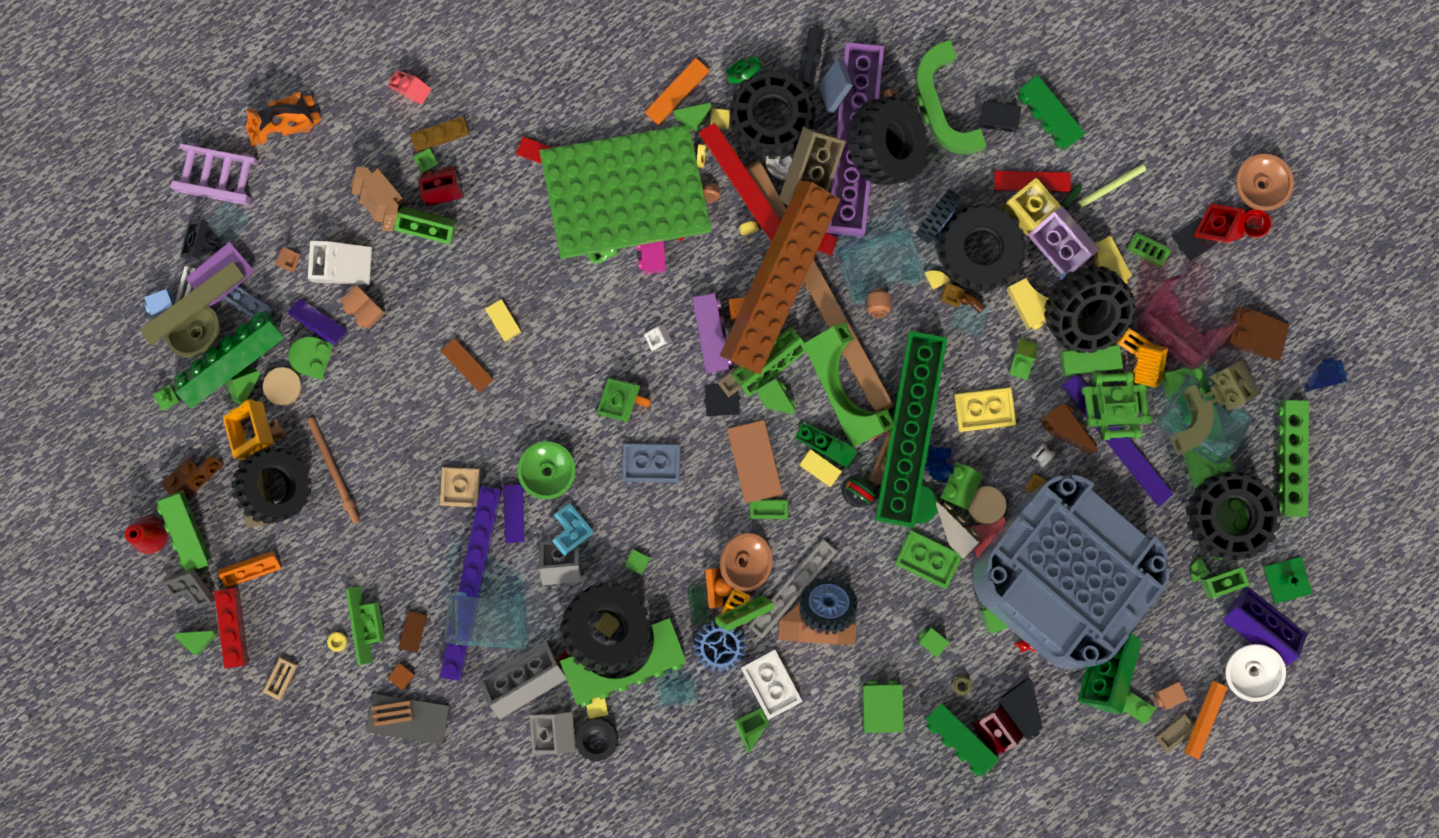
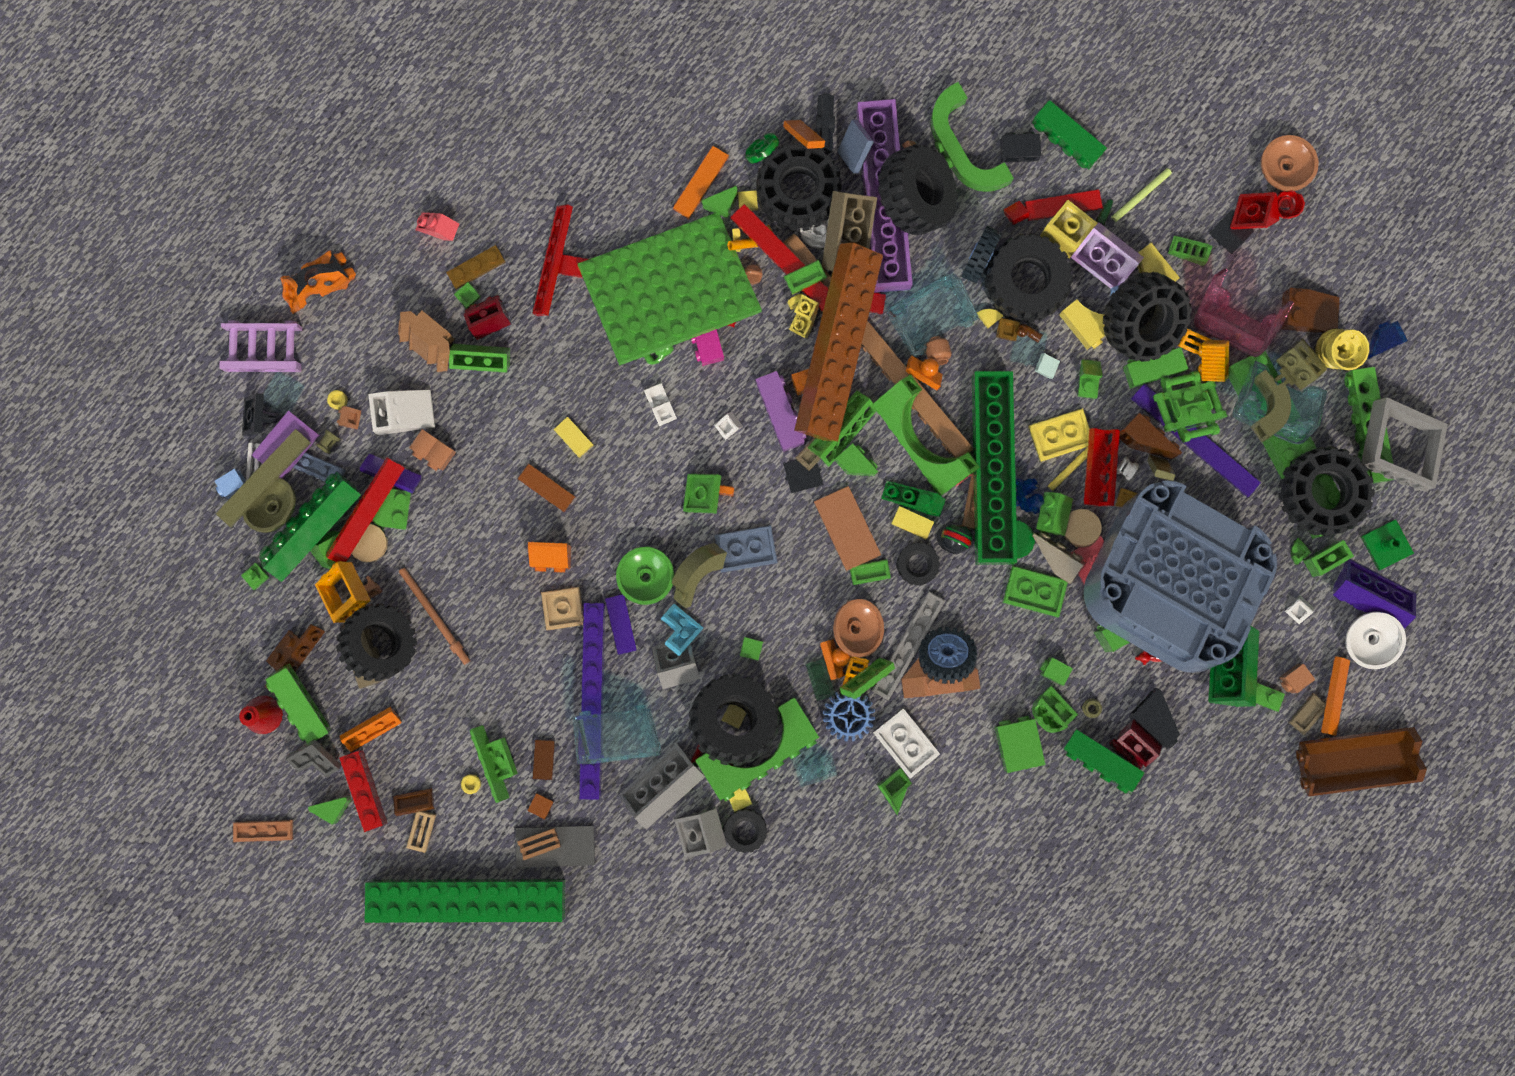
camera: 15 degrees left, 0 degrees up
(126, 648) = (263, 831): none -> nougat tile
(262, 279) = (327, 442): none -> olive bush
(278, 648) = (413, 802): none -> reddish brown tile
(279, 239) = (337, 399): none -> light yellow tile
(285, 354) = (365, 511): none -> red tile
(309, 754) = (464, 900): none -> green brick
(456, 433) = (549, 555): none -> orange slope
(516, 142) = (552, 260): none -> red tile
(594, 304) = (660, 404): none -> white slope
(595, 472) = (694, 568): none -> olive arch
(703, 161) = (741, 244): none -> light orange piece
(754, 243) = (805, 316): none -> light yellow slope
(760, 206) = (805, 277): none -> bright green tile
(787, 64) = (804, 134): none -> orange tile
(820, 495) = (918, 549): none -> black tyre
(861, 321) = (925, 371): none -> orange tile
(921, 681) = (1052, 711): none -> bright green slope
(983, 180) = (1016, 212): none -> red tile
(984, 338) = (1047, 366): none -> light aqua tile
(987, 444) = (1068, 470): none -> light yellow bar
(1014, 449) = (1098, 467): none -> red fence
(1075, 461) = (1161, 468): none -> olive tile
(1187, 627) = (1299, 609): none -> white slope
(1217, 789) = (1360, 761): none -> reddish brown panel
(1289, 378) = (1342, 349): none -> light yellow wheel
(1292, 473) = (1375, 436): none -> light grey window

